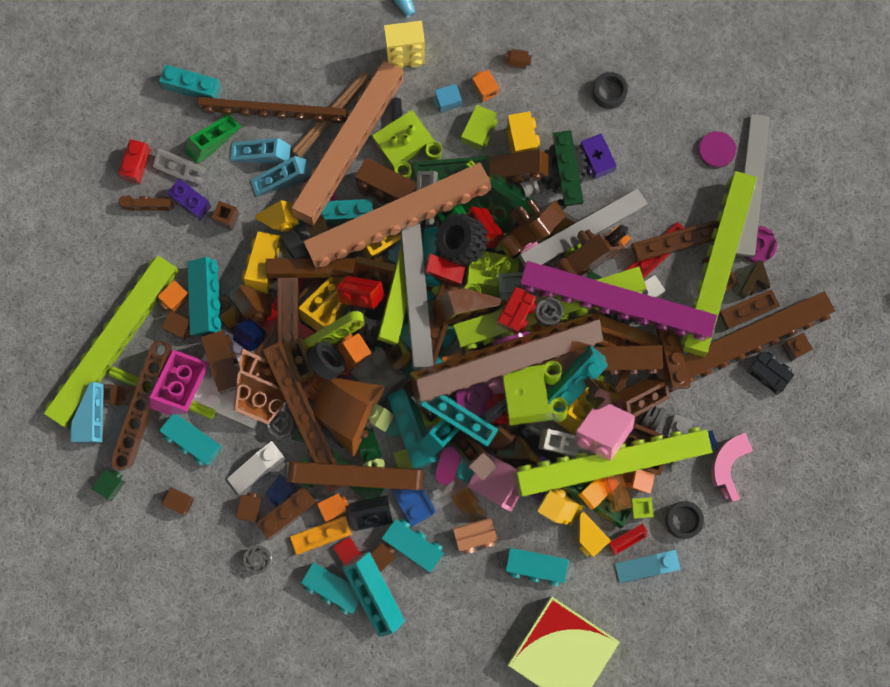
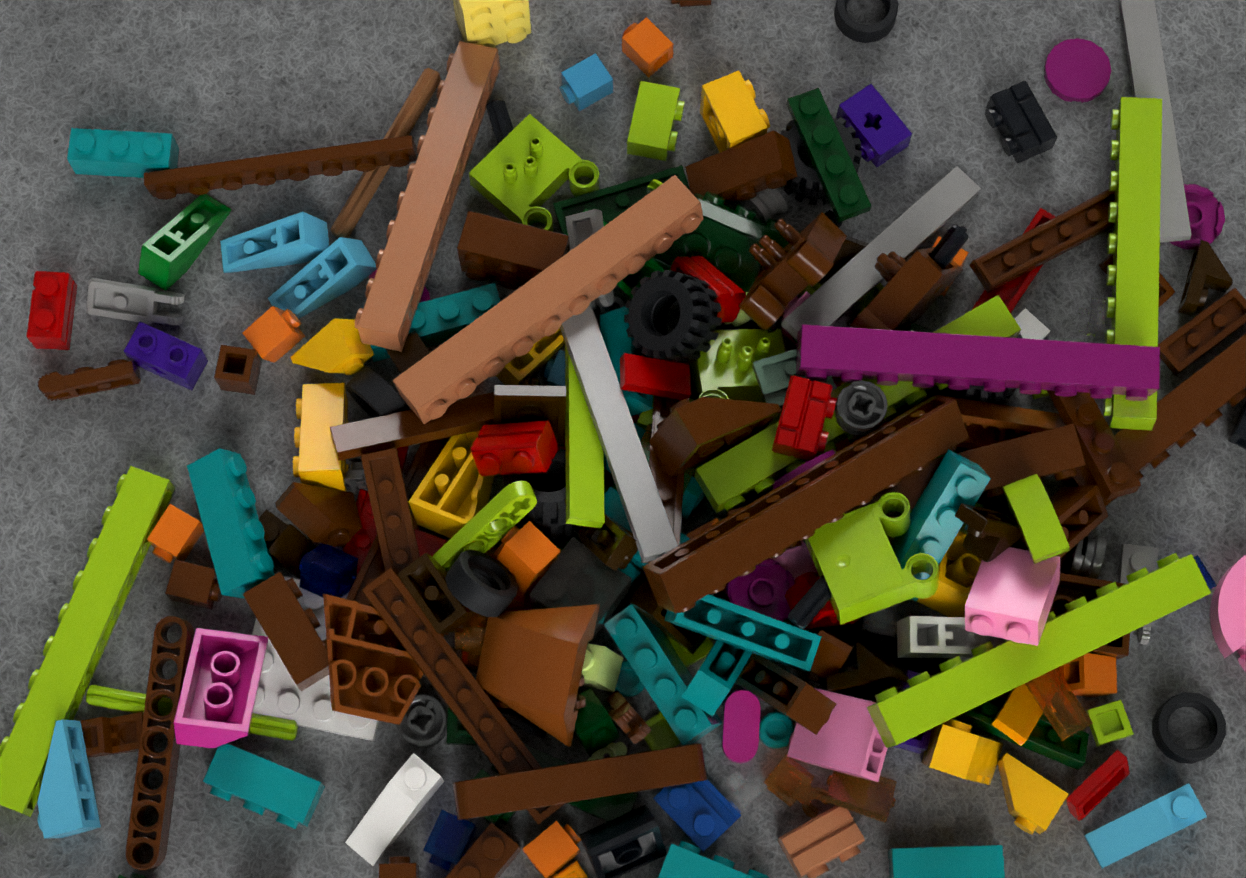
camera: 10 degrees left, 5 degrees down
(249, 200) = (274, 333): none -> orange brick
(387, 448) = (627, 718): none -> reddish brown hinge
(502, 517) = (861, 795): none -> clear orange piece
(626, 392) = (1036, 518): none -> lime arch
(678, 172) = (1020, 122): none -> black brick

